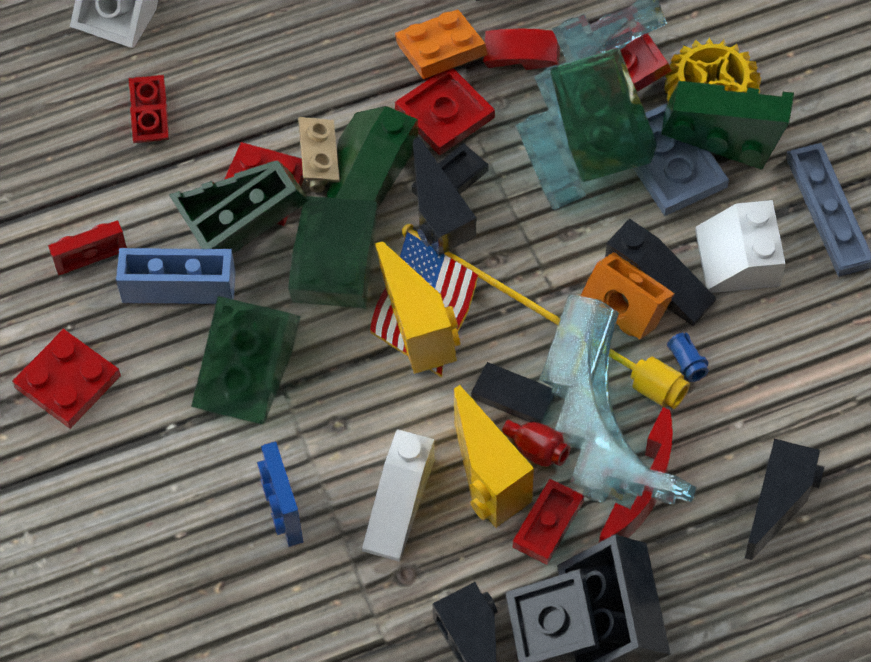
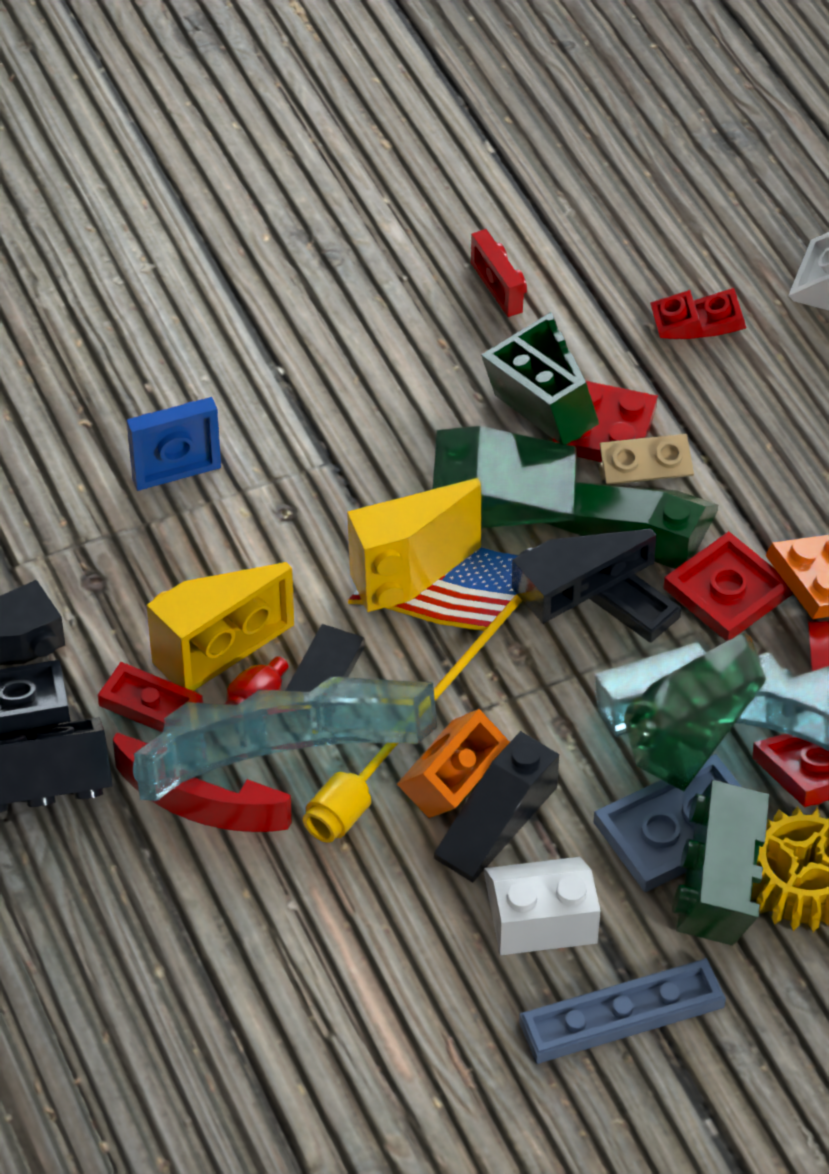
camera: 85 degrees right, 10 degrees down
(66, 378) = (335, 276): red plate -> none
(175, 275) = (457, 342): medium blue brick -> none
(244, 359) = (362, 414): clear green slope -> none
(399, 494) = (183, 555): white slope -> none
(691, 363) = (375, 842): blue pin -> none
(784, 491) = (188, 934): black slope -> none

